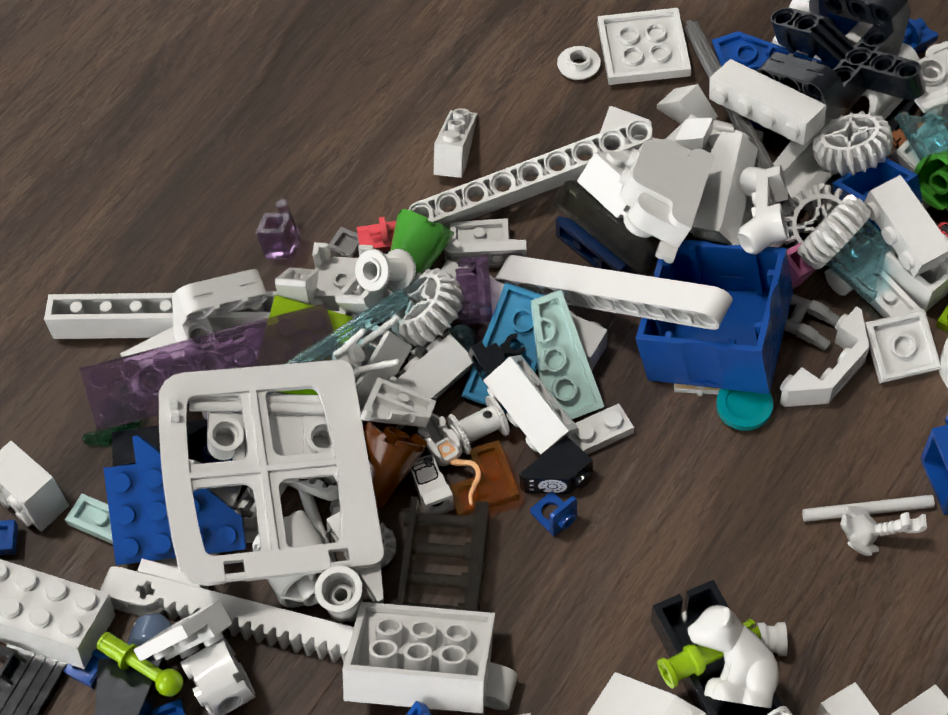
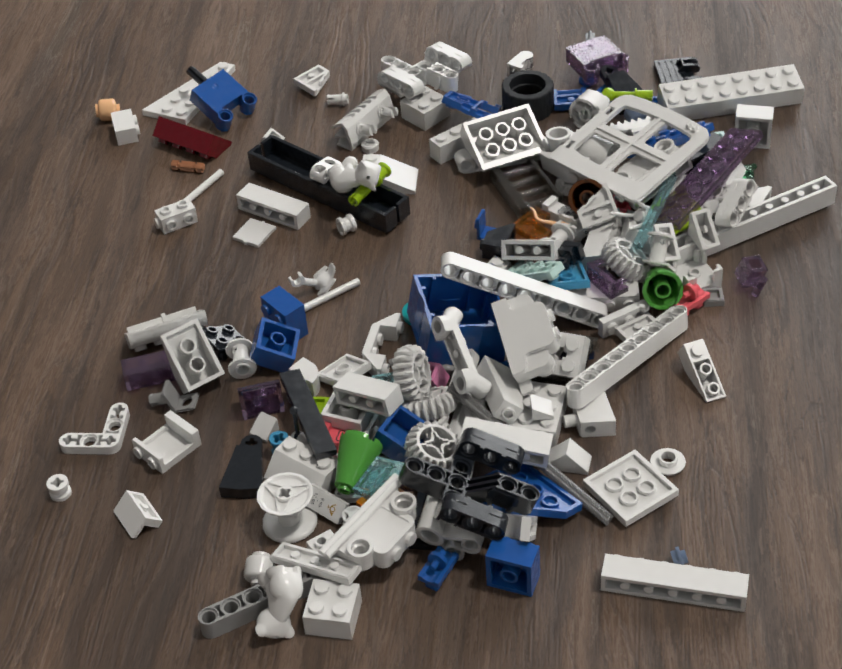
camera: 150 degrees right, 15 degrees down
(186, 634) = (612, 90): white plate -> none

